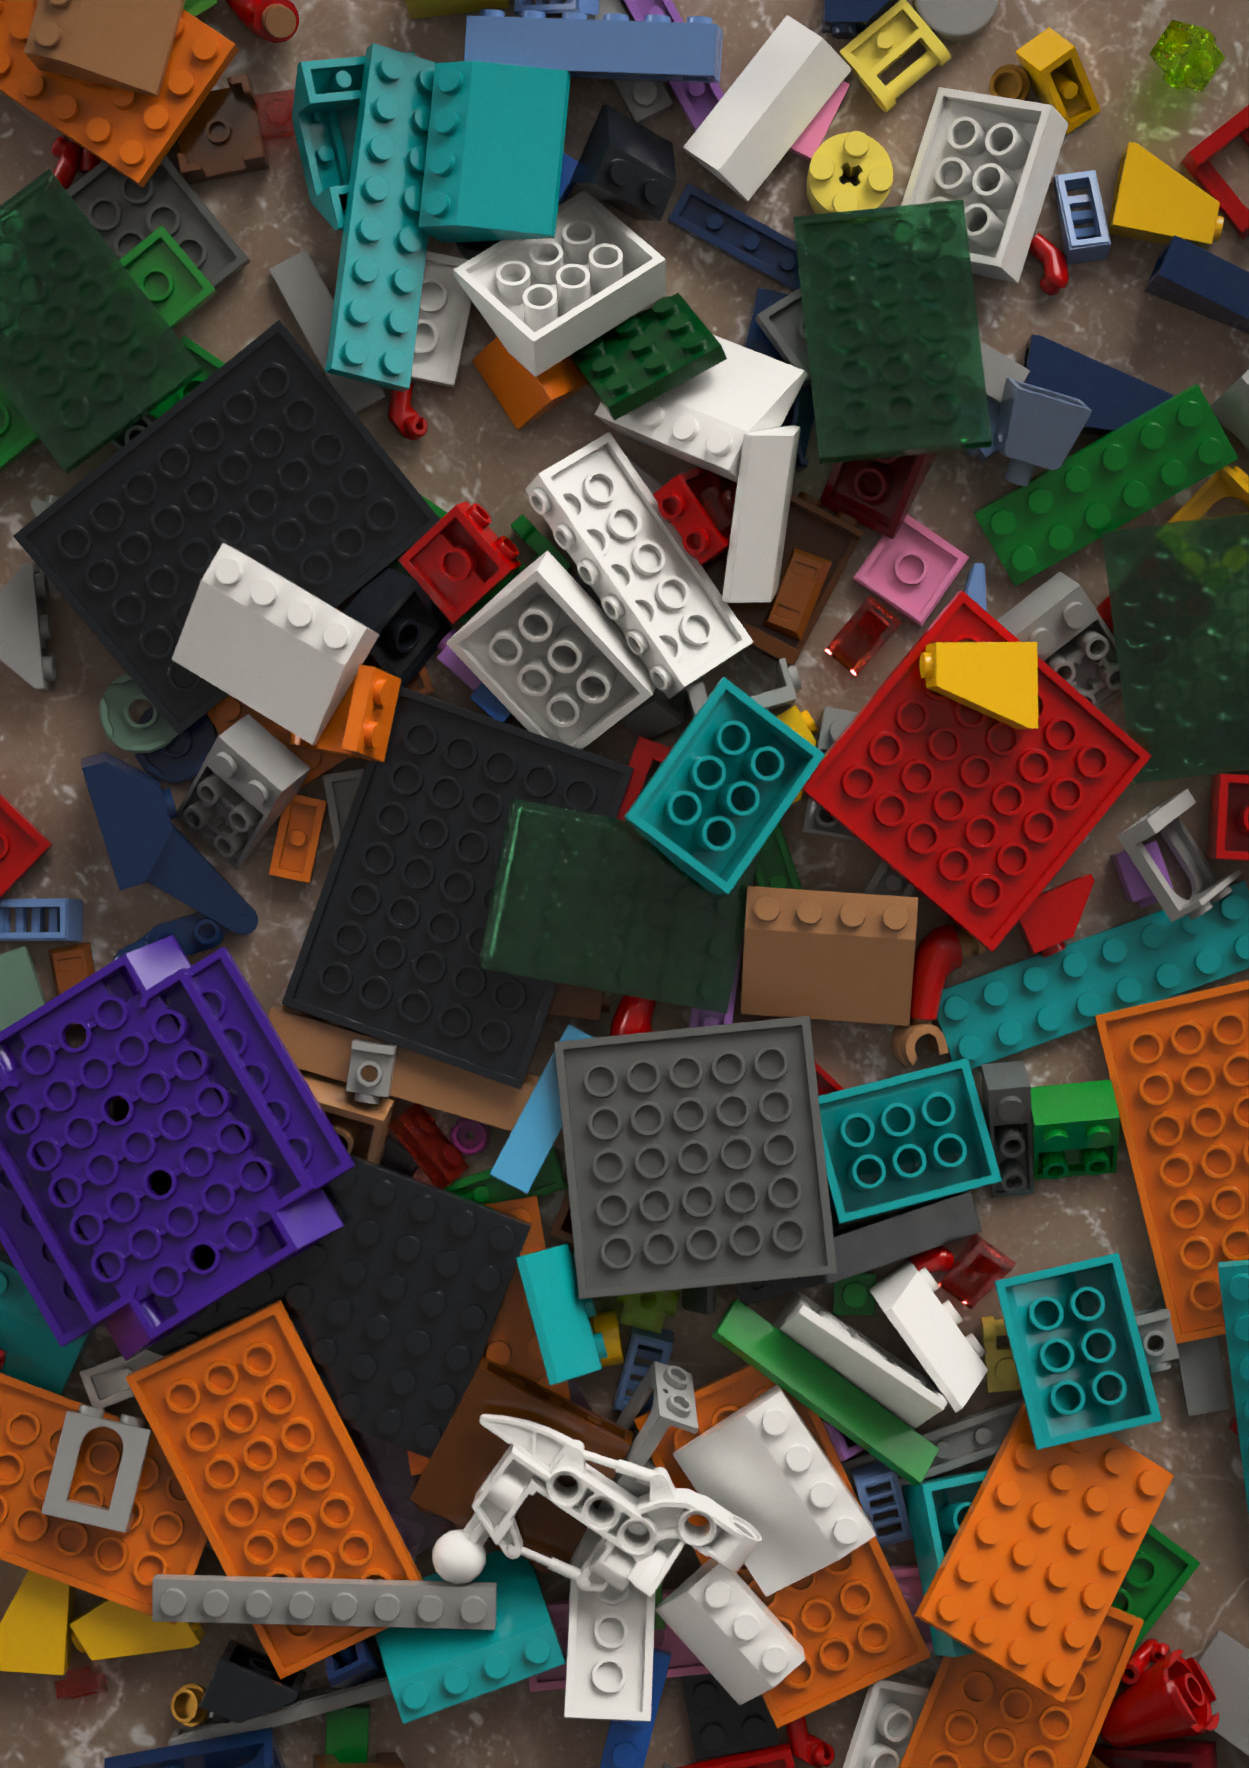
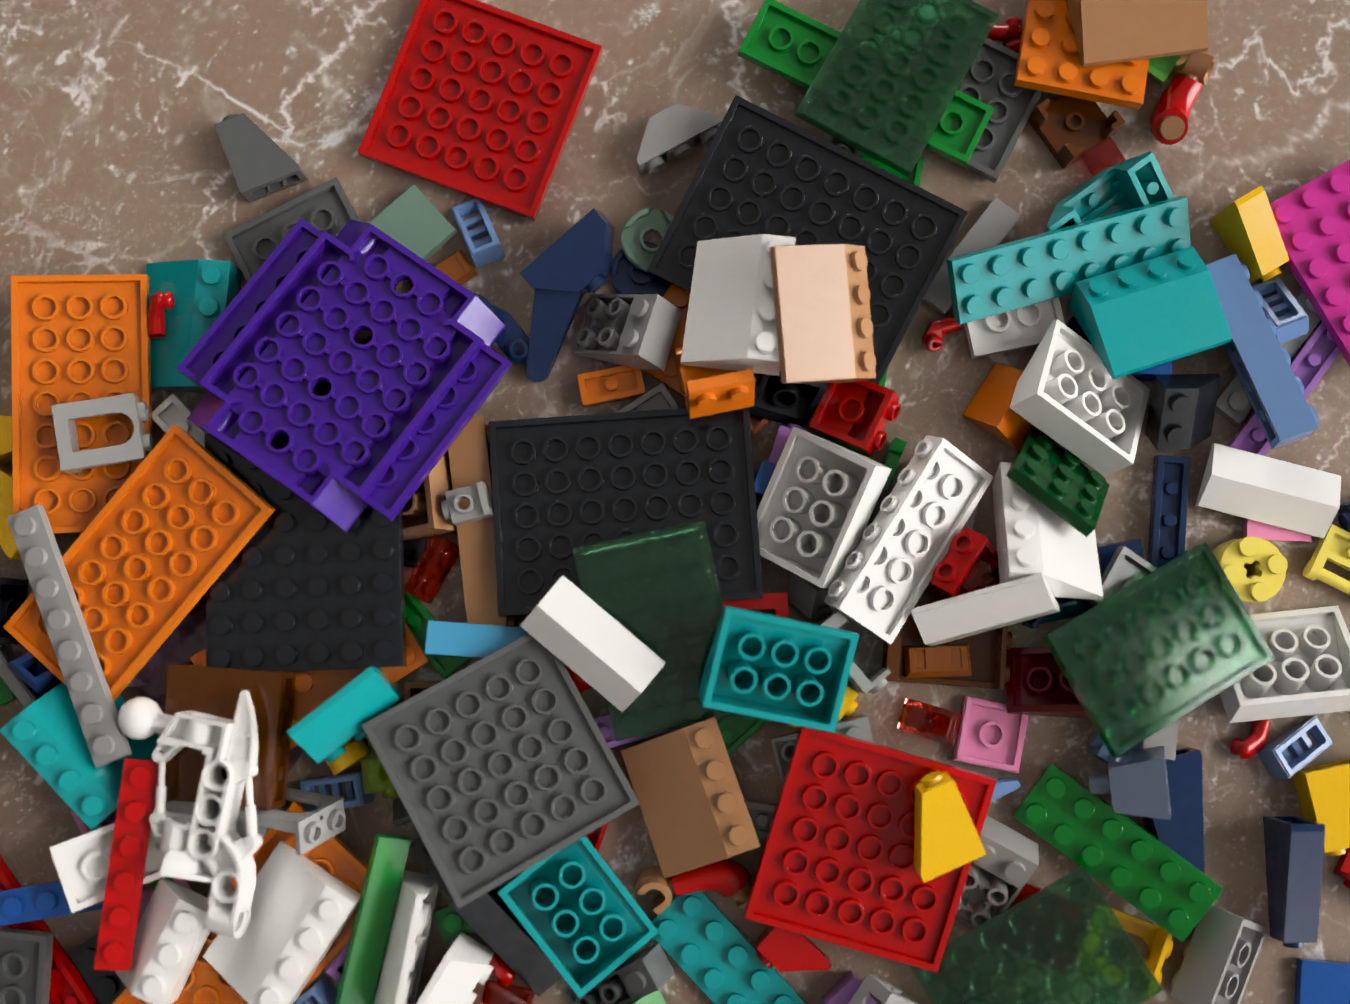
camera: 70 degrees right, 5 degrees down
(329, 551) = (823, 313): none -> slope
(467, 1146) = (444, 595): magenta plate -> none
(601, 991) = (593, 644): none -> white slope
(621, 1637) = (126, 865): none -> red plate

